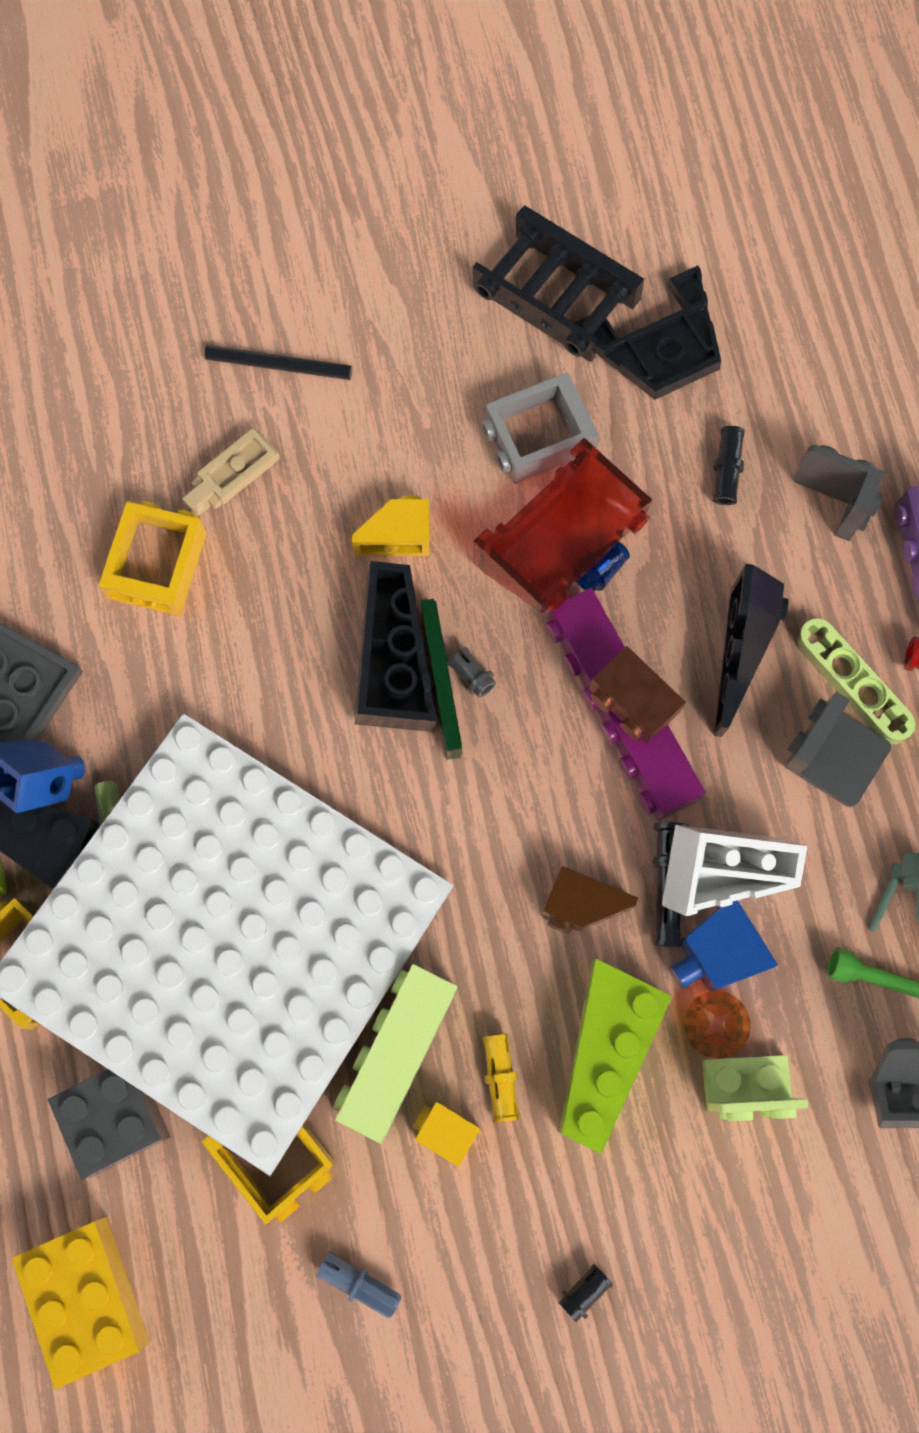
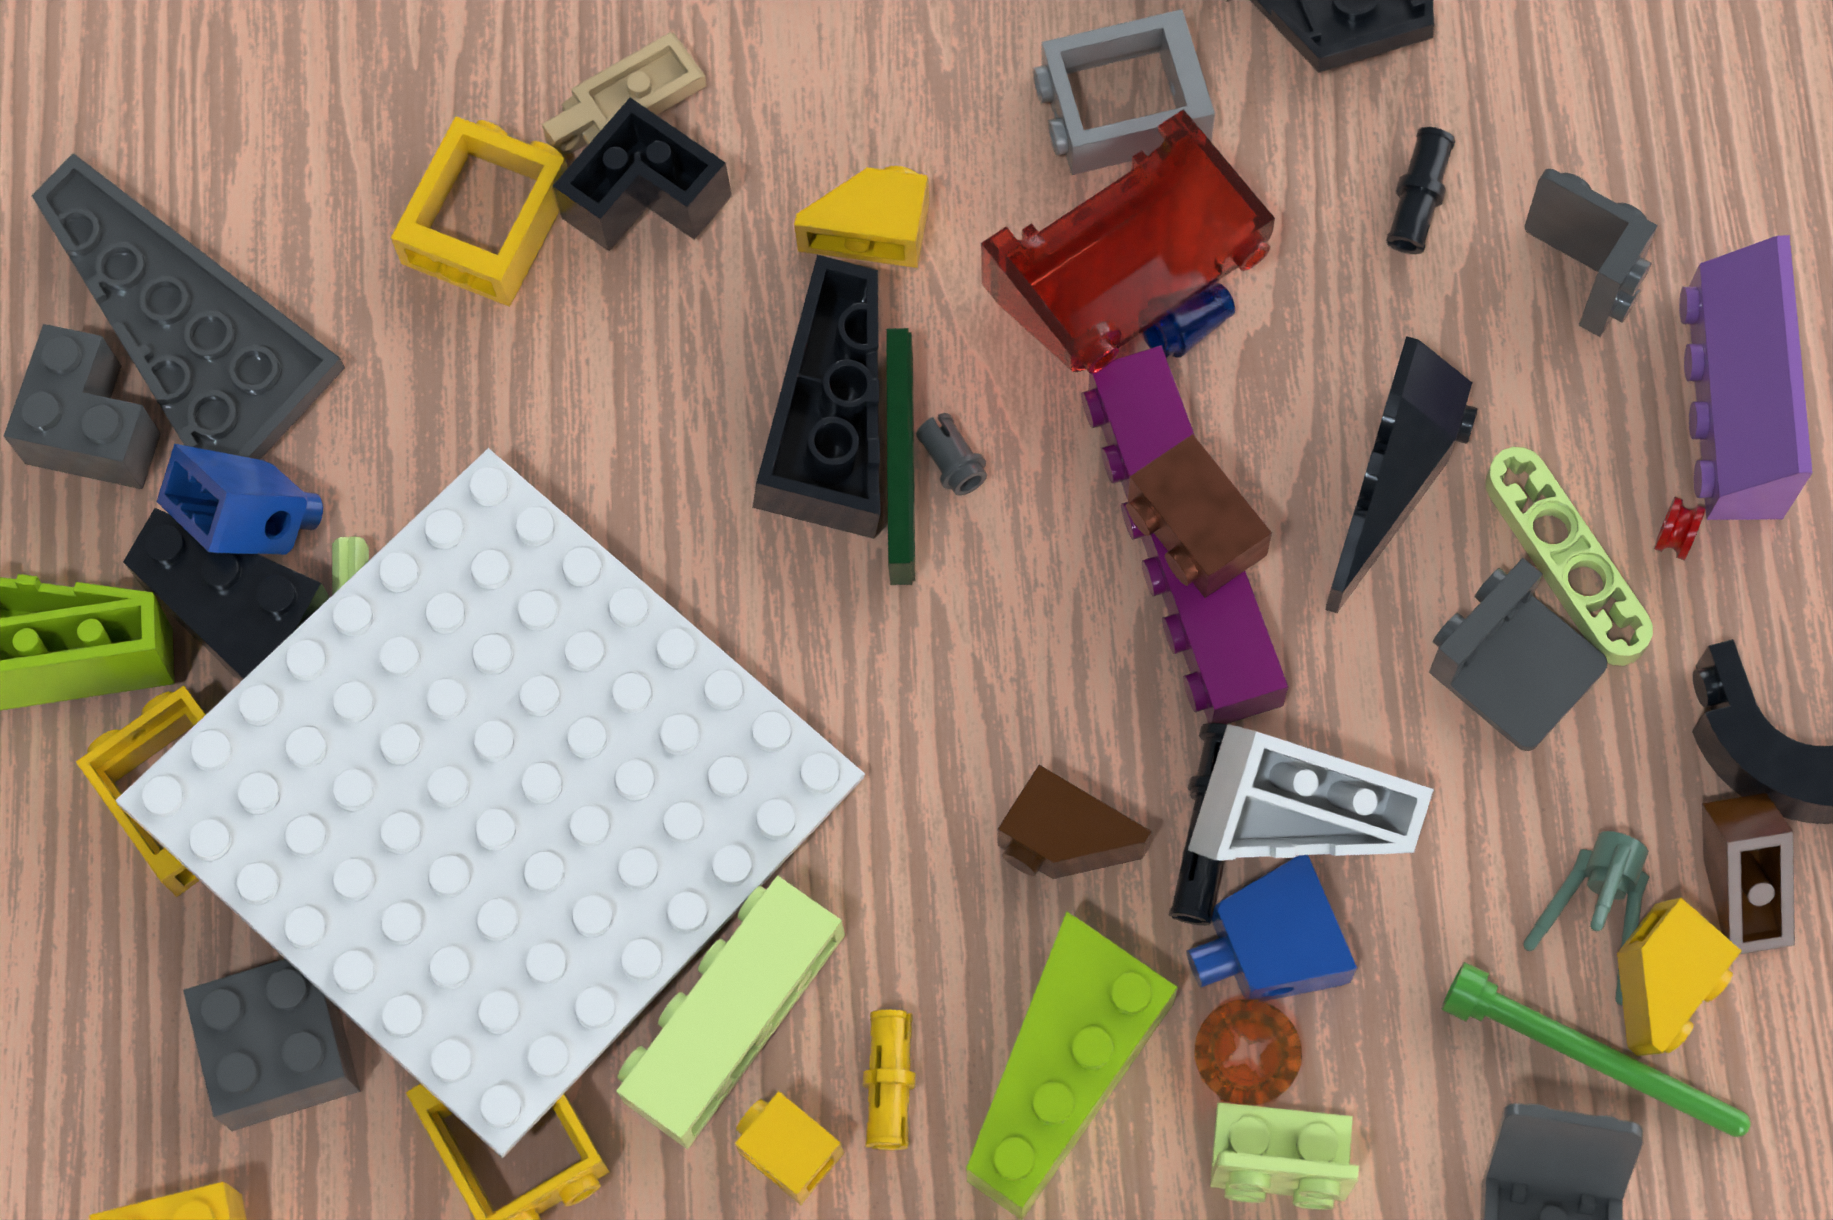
camera: 15 degrees right, 5 degrees down
(250, 516) = (639, 166): none -> black brick

